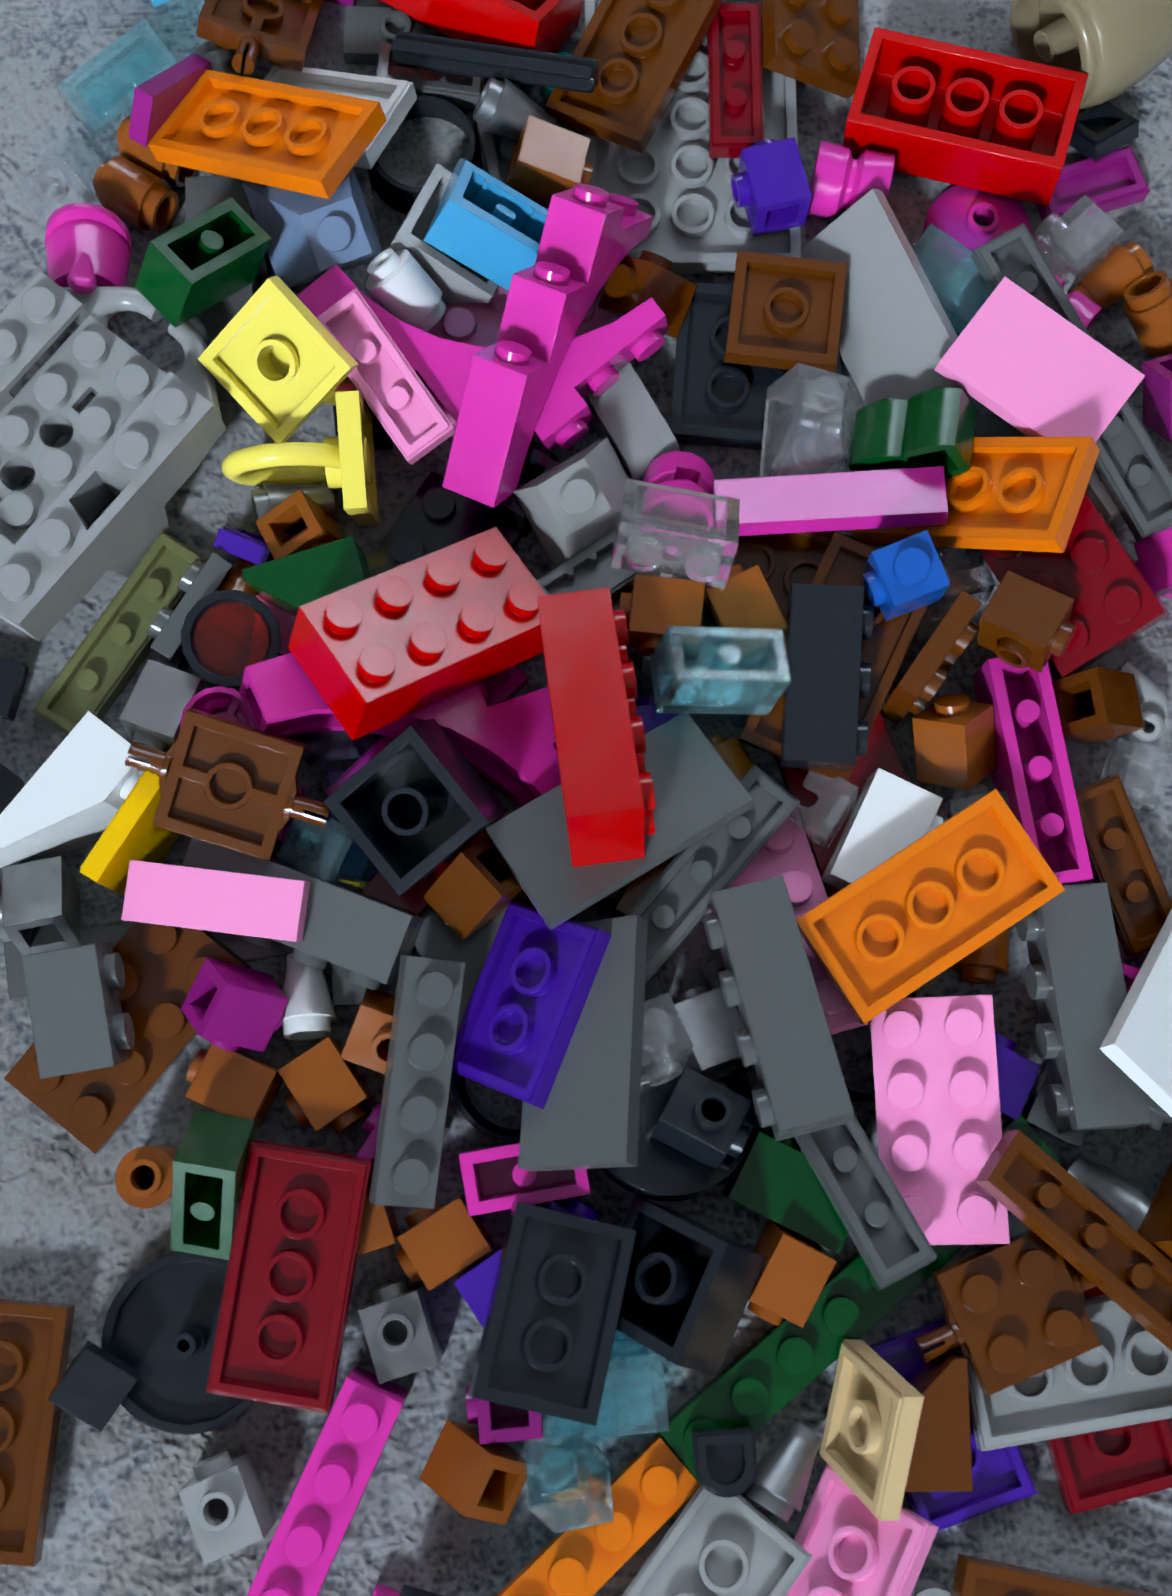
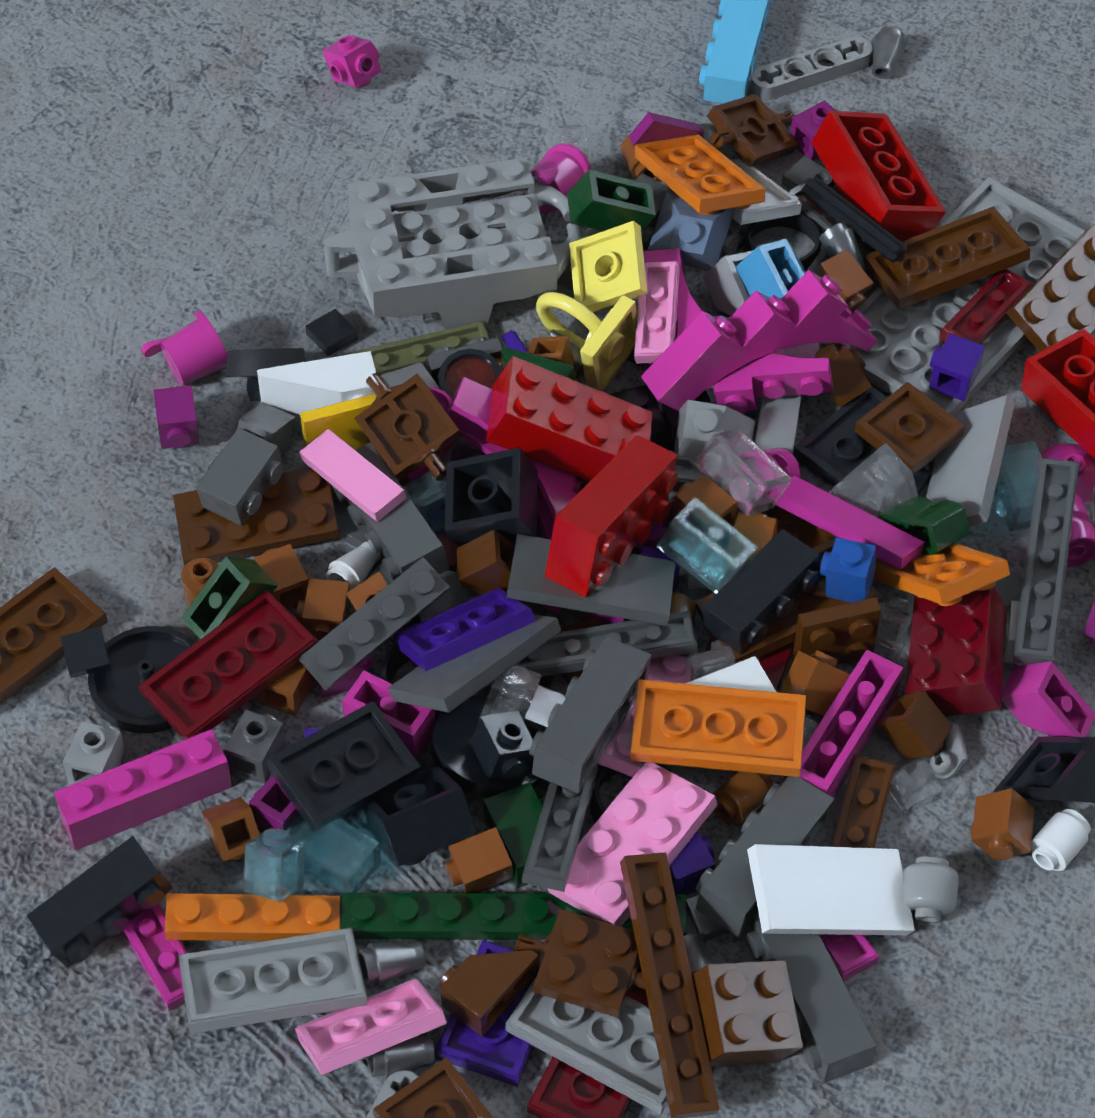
camera: 40 degrees right, 25 degrees down
(105, 86) = (634, 106): clear light blue brick -> none
(135, 194) = (610, 160): dark orange brick -> none
(234, 1006) = (316, 535): magenta brick -> none
(405, 289) = (709, 287): white brick -> none
(441, 1242) = (311, 711): dark orange brick -> none
(725, 1459) = (365, 919): black tile -> none
(842, 181) = (1005, 381): dark pink wheel -> none
(871, 1428) = (455, 950): tan tile -> none
(1026, 623) = (898, 636): reddish brown brick -> none
(1037, 368) = (1021, 526): bright pink tile -> none

